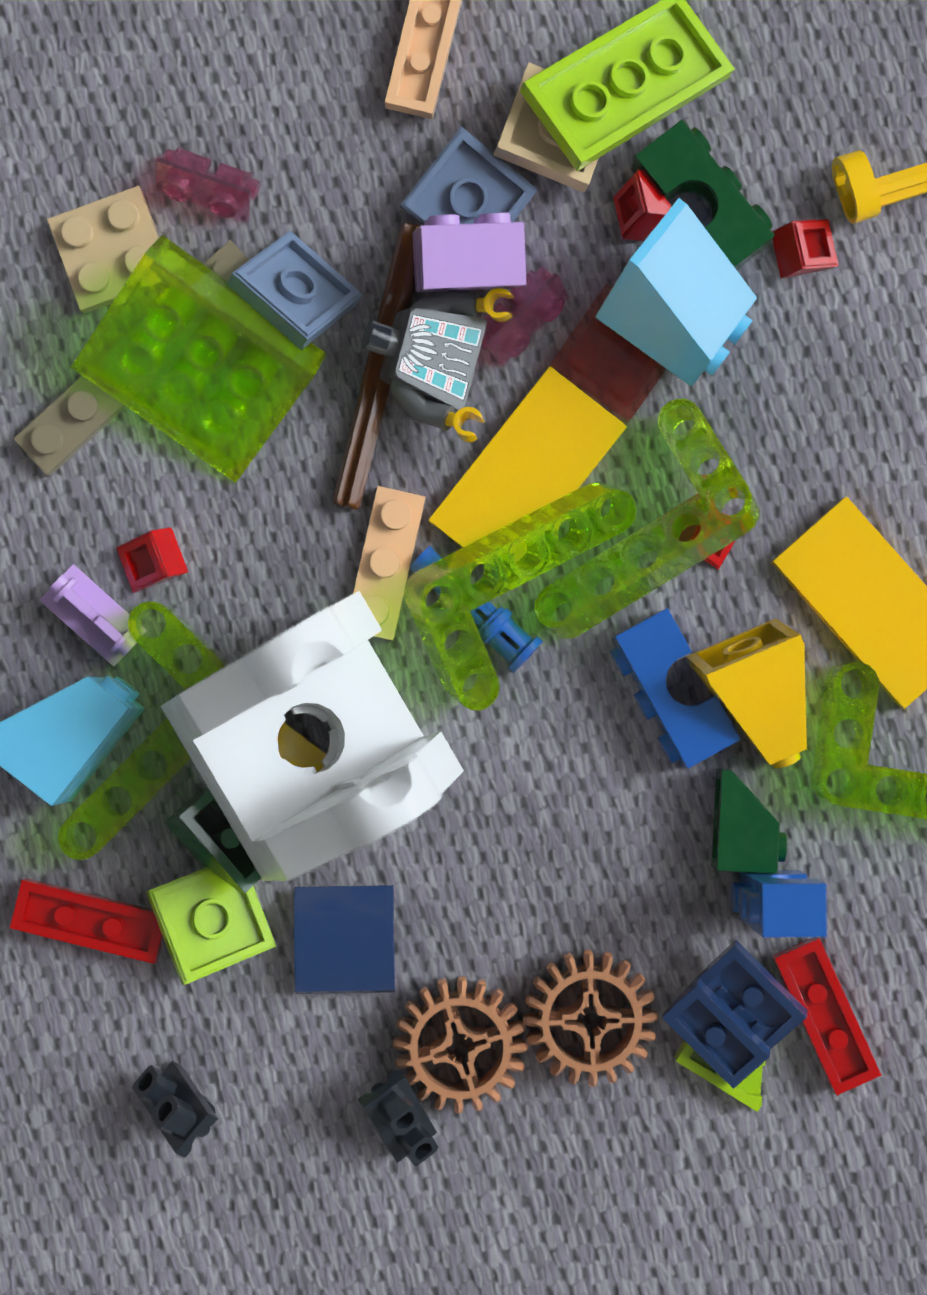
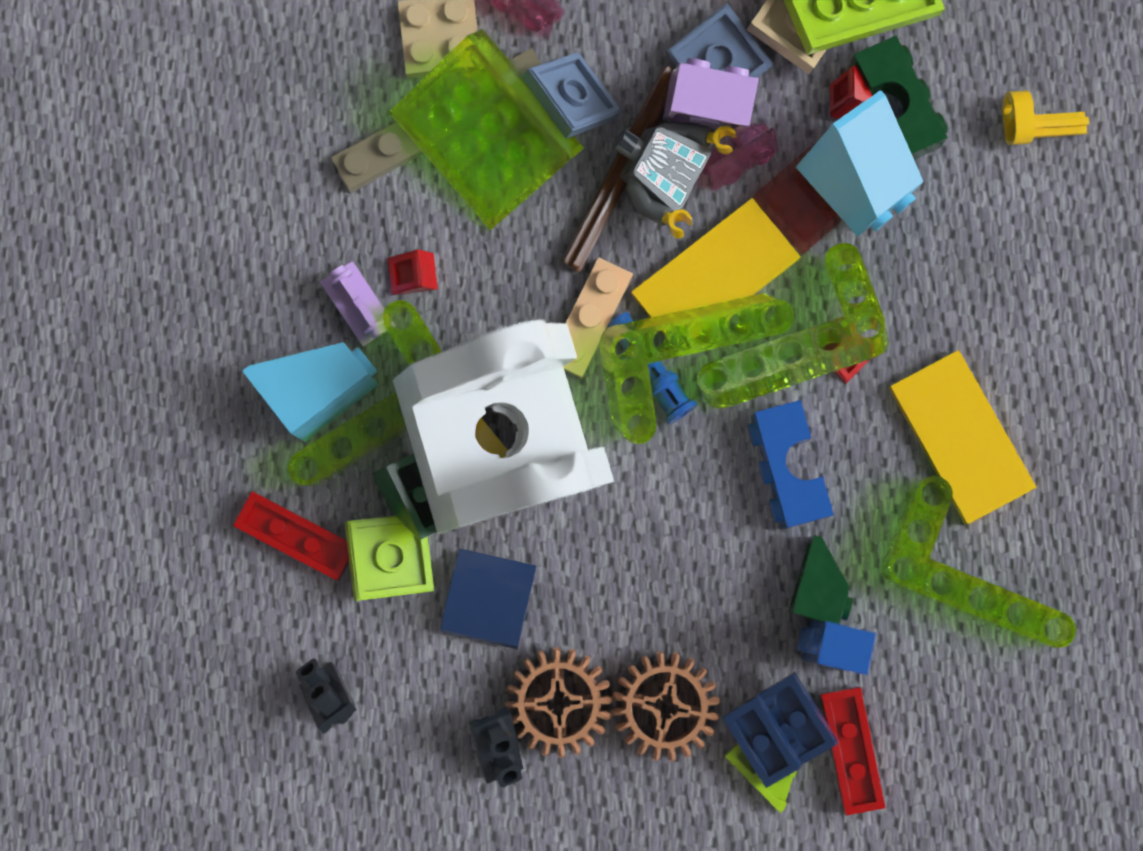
camera: 20 degrees right, 5 degrees down
(761, 687) = (859, 481): yellow slope -> none
(804, 247) = (968, 154): red slope -> none

